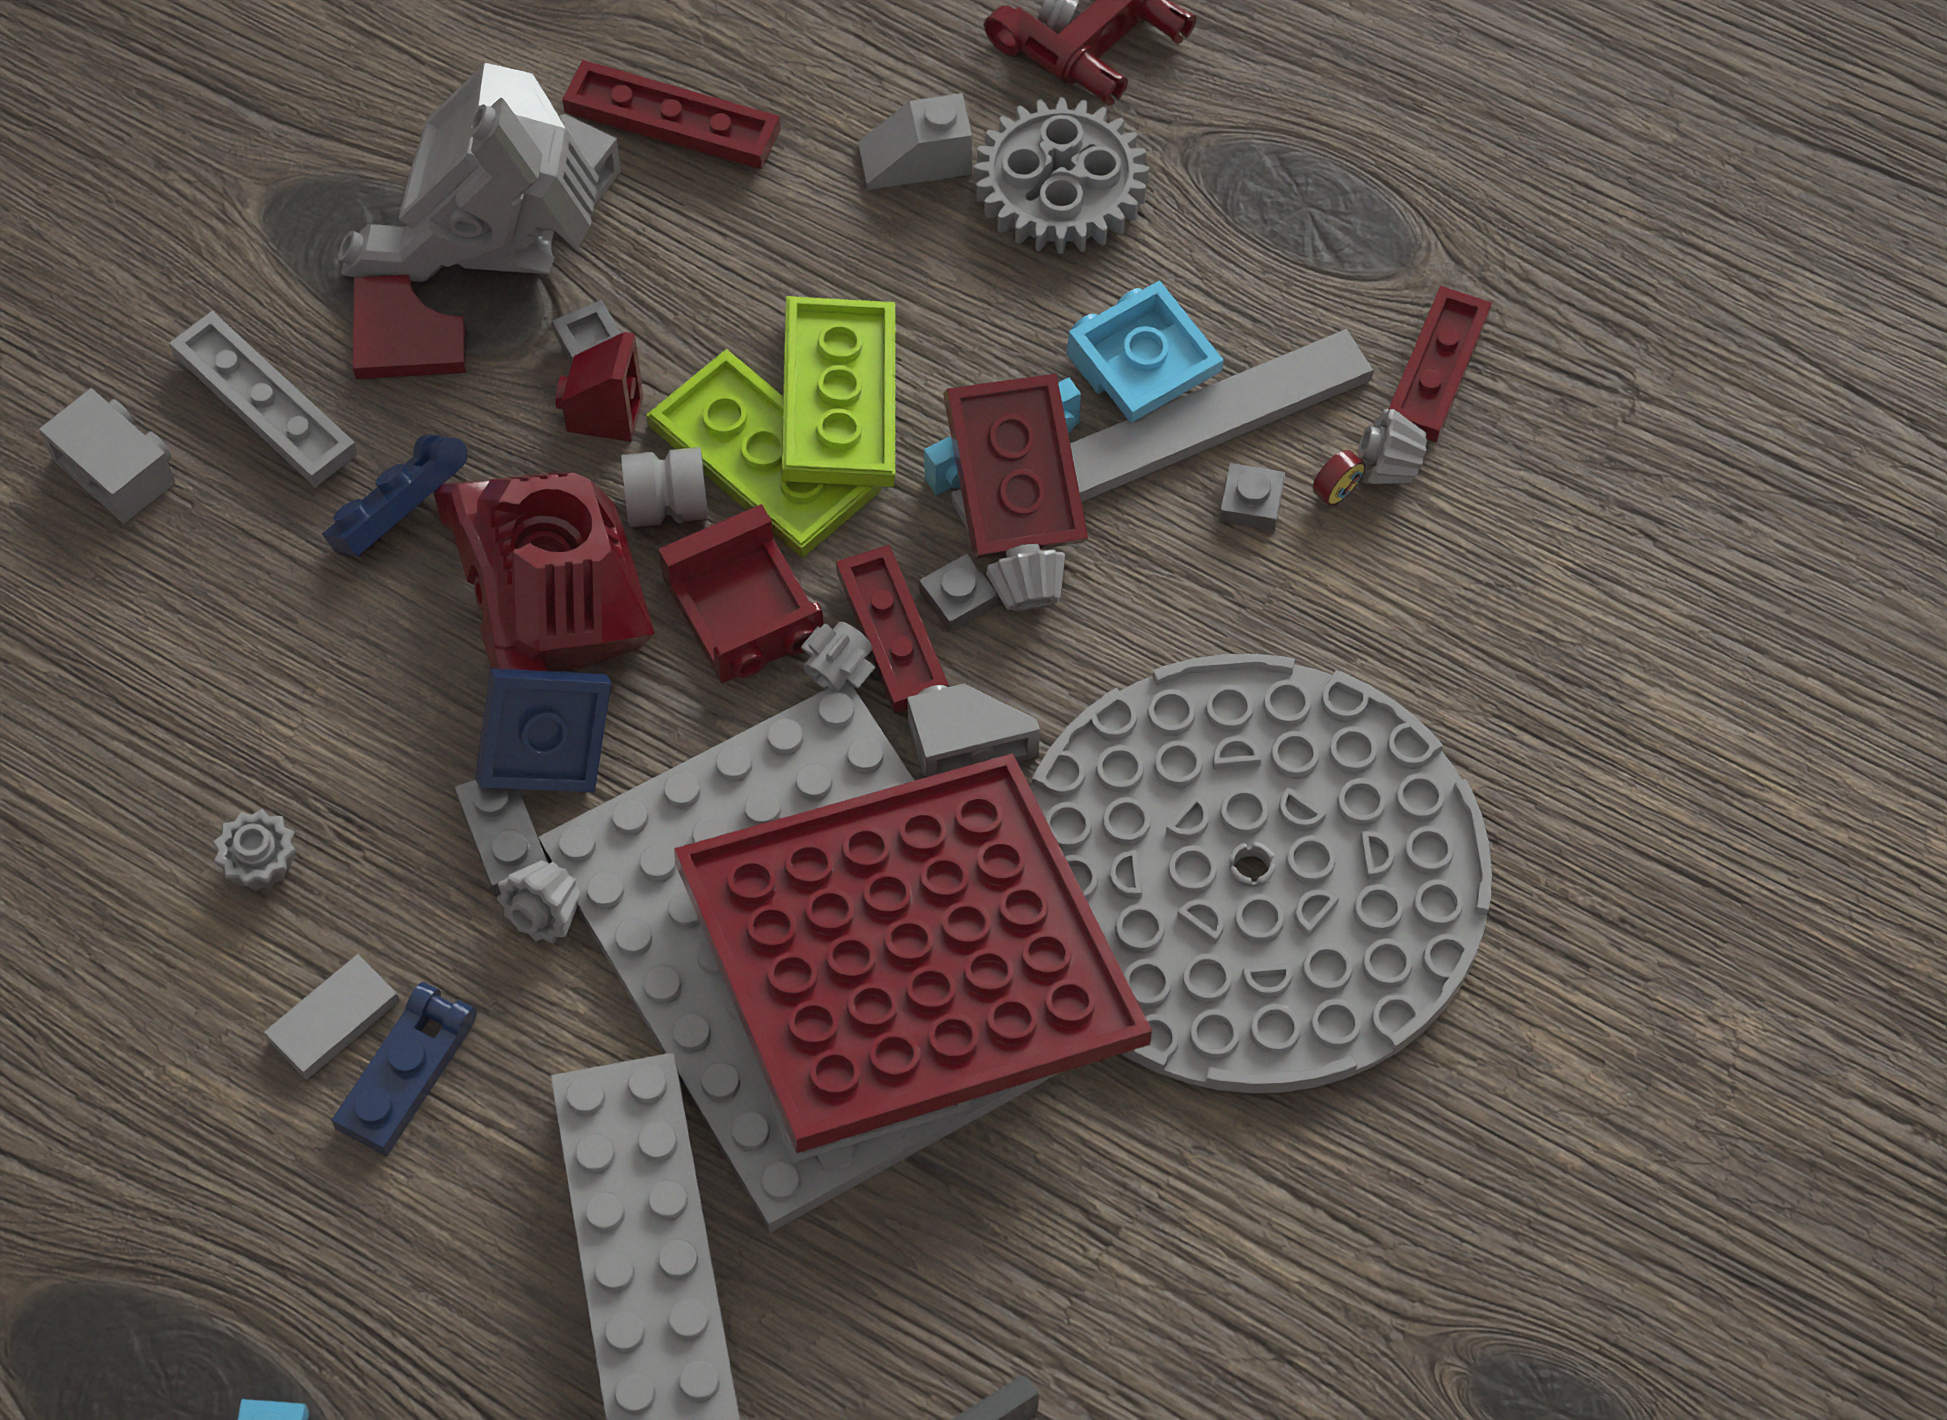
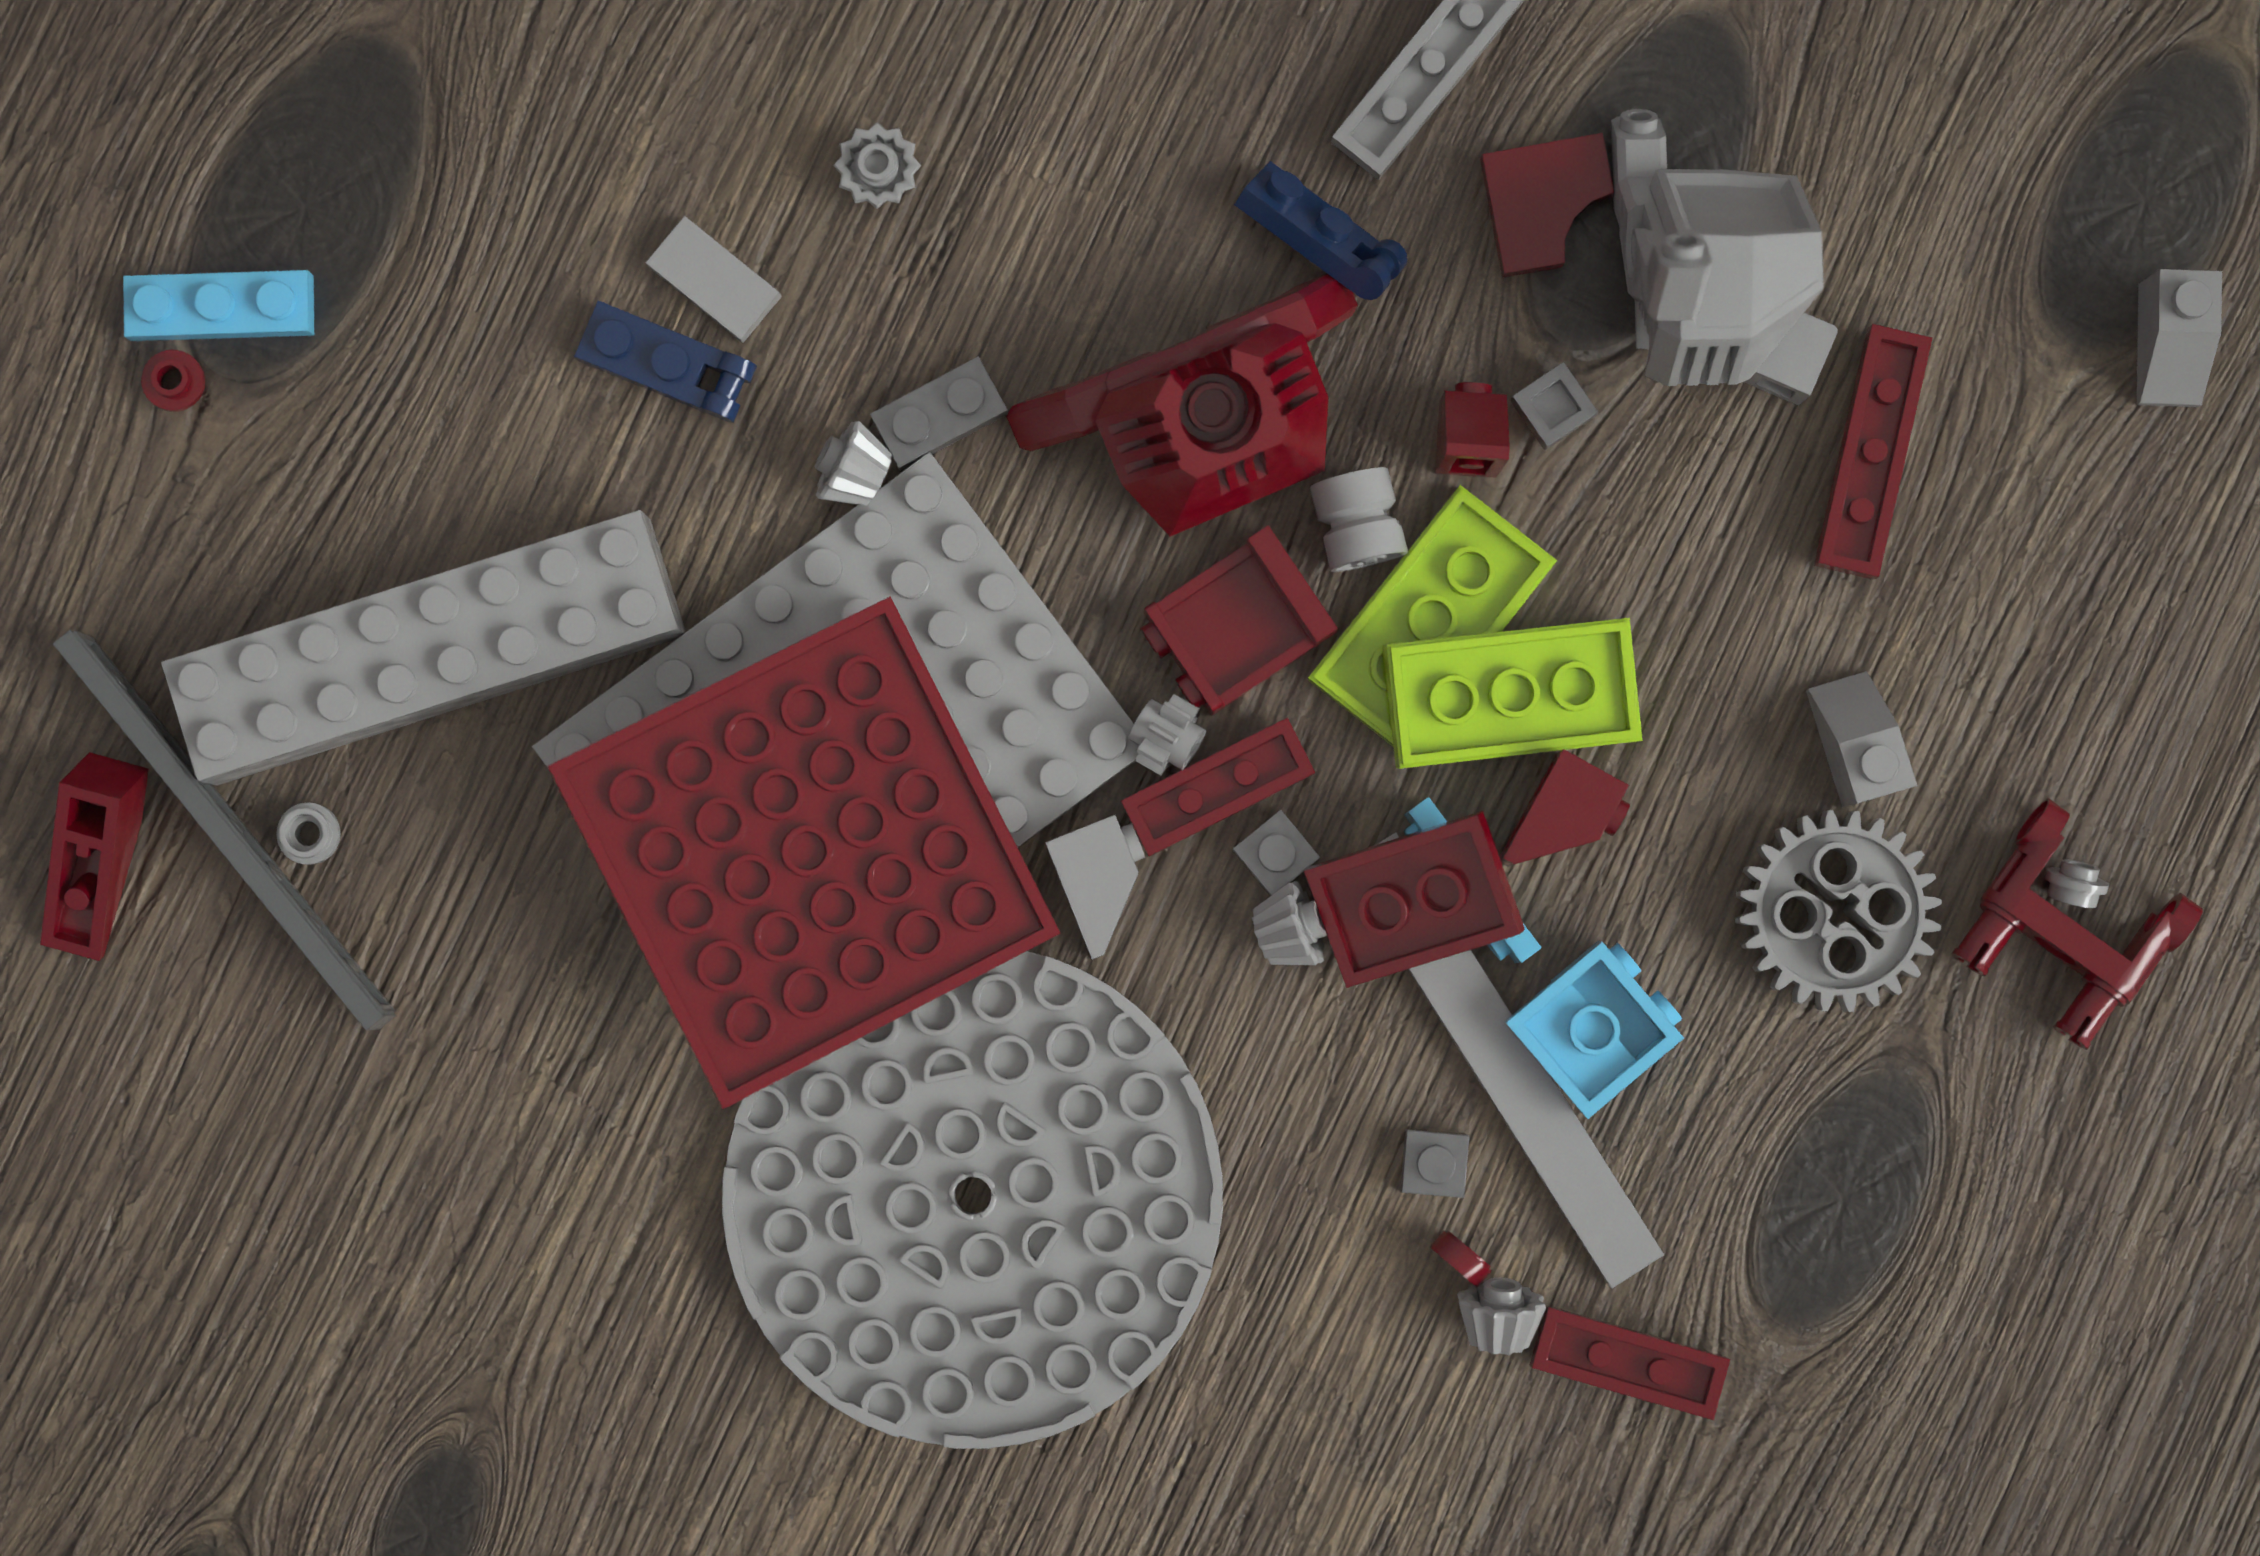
camera: 85 degrees right, 25 degrees up
(542, 730) = (1028, 438): dark blue plate -> none
(942, 351) = (1567, 810): none -> dark red slope

